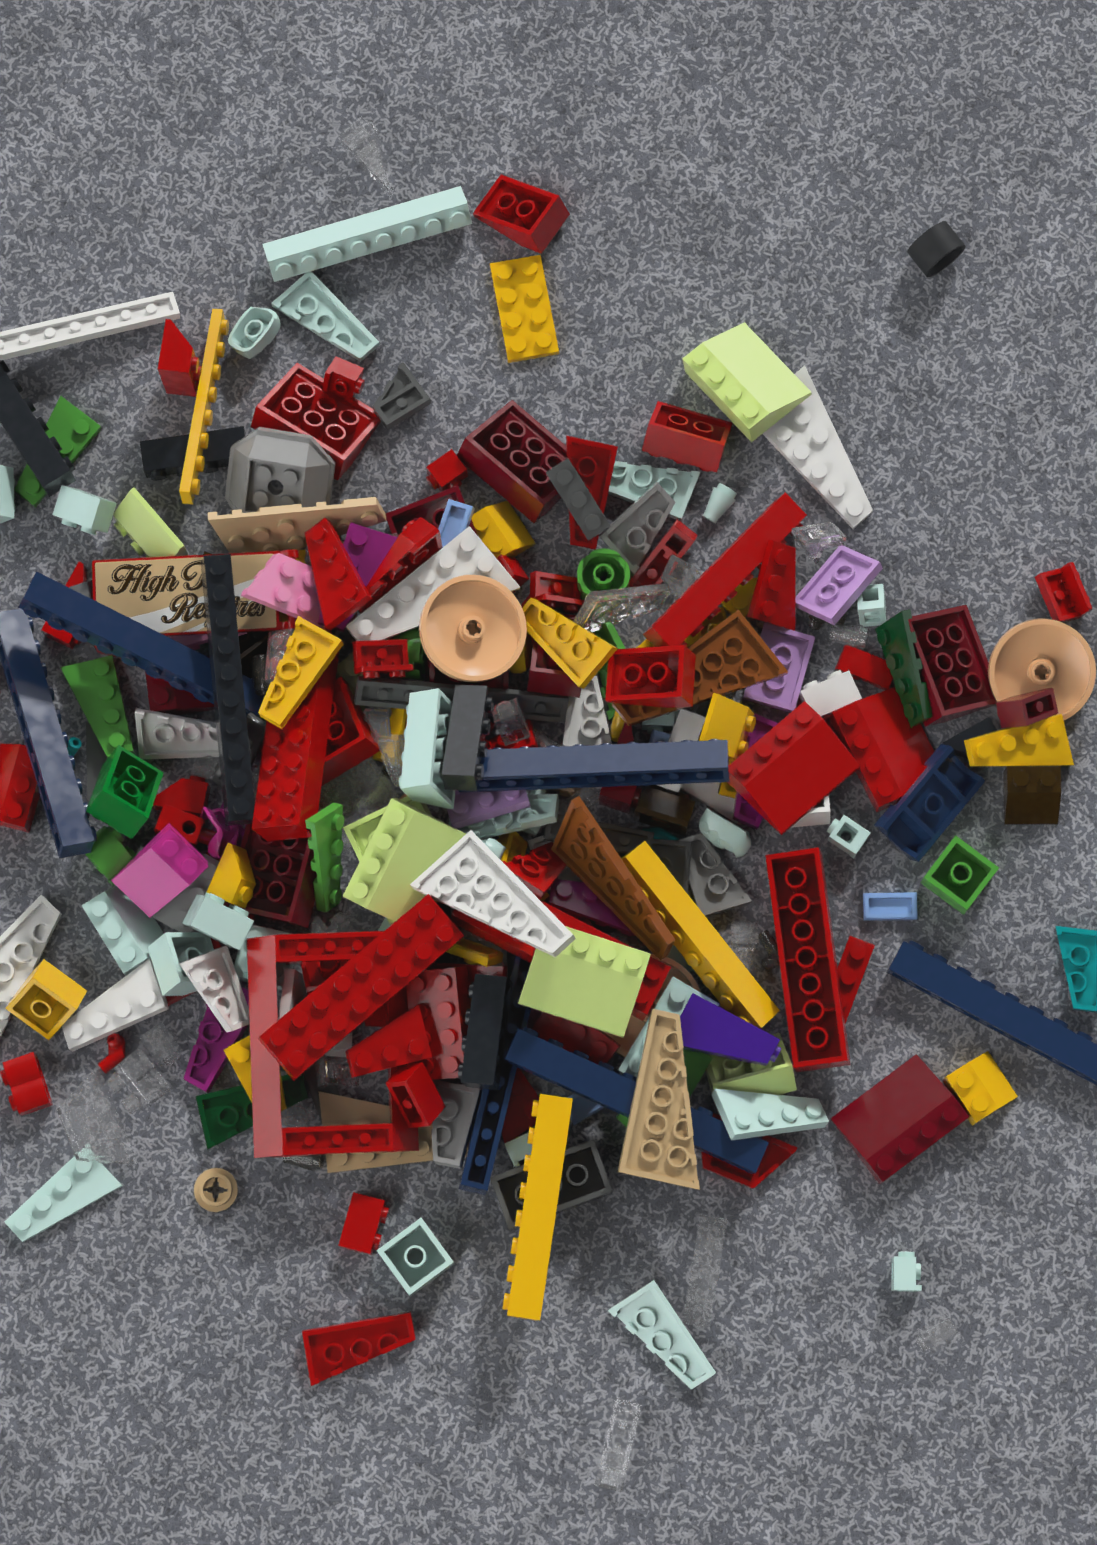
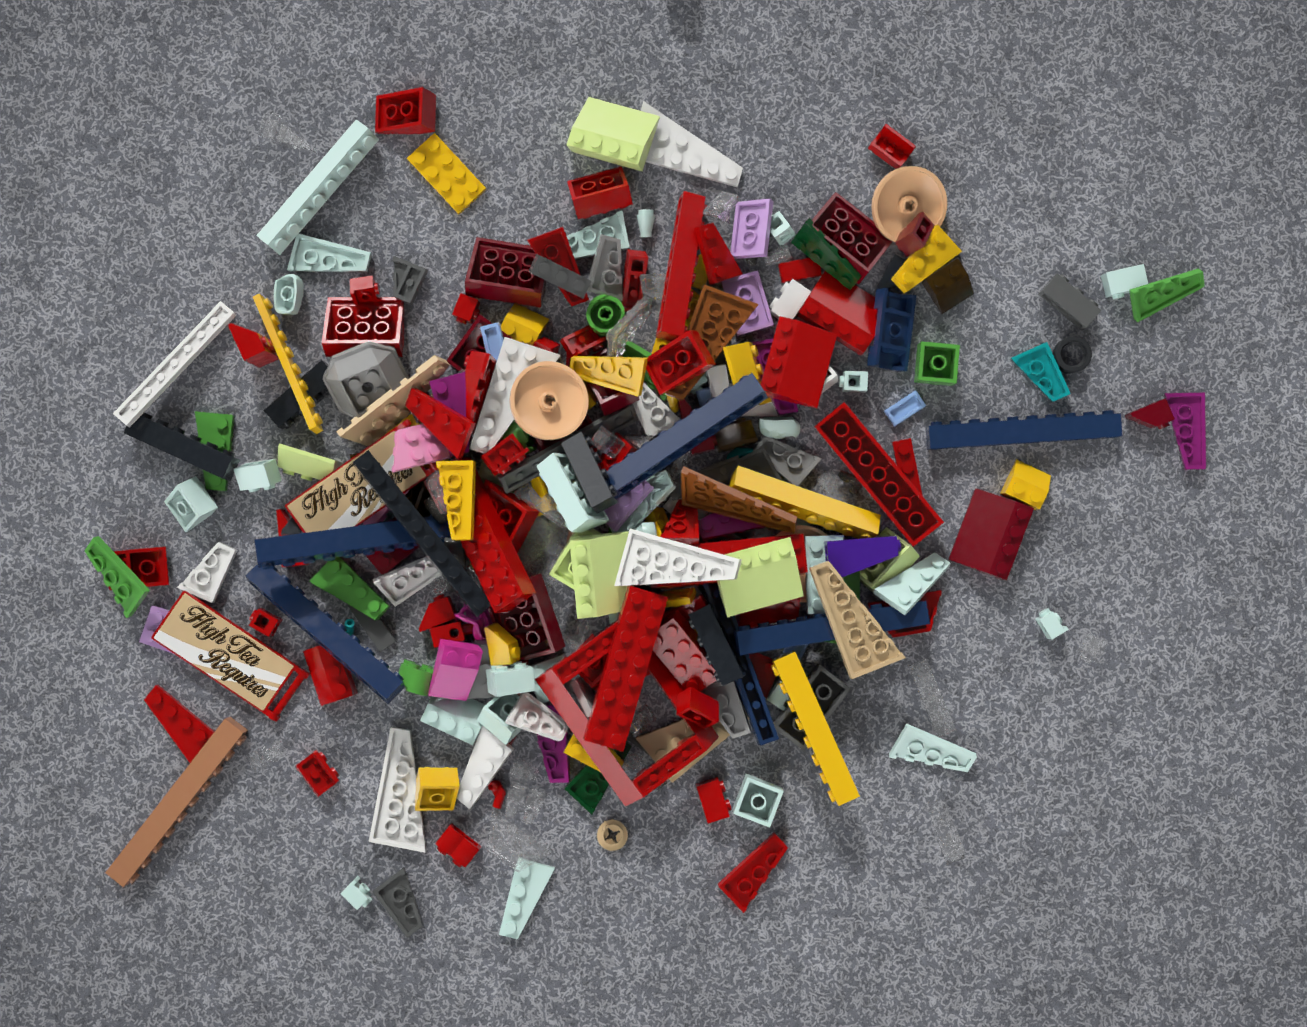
camera: 35 degrees left, 10 degrees up
(124, 792) = (400, 636): green brick -> none
(327, 847) = (547, 593): bright green wing -> none
(391, 1046) = (666, 689): red wing -> none

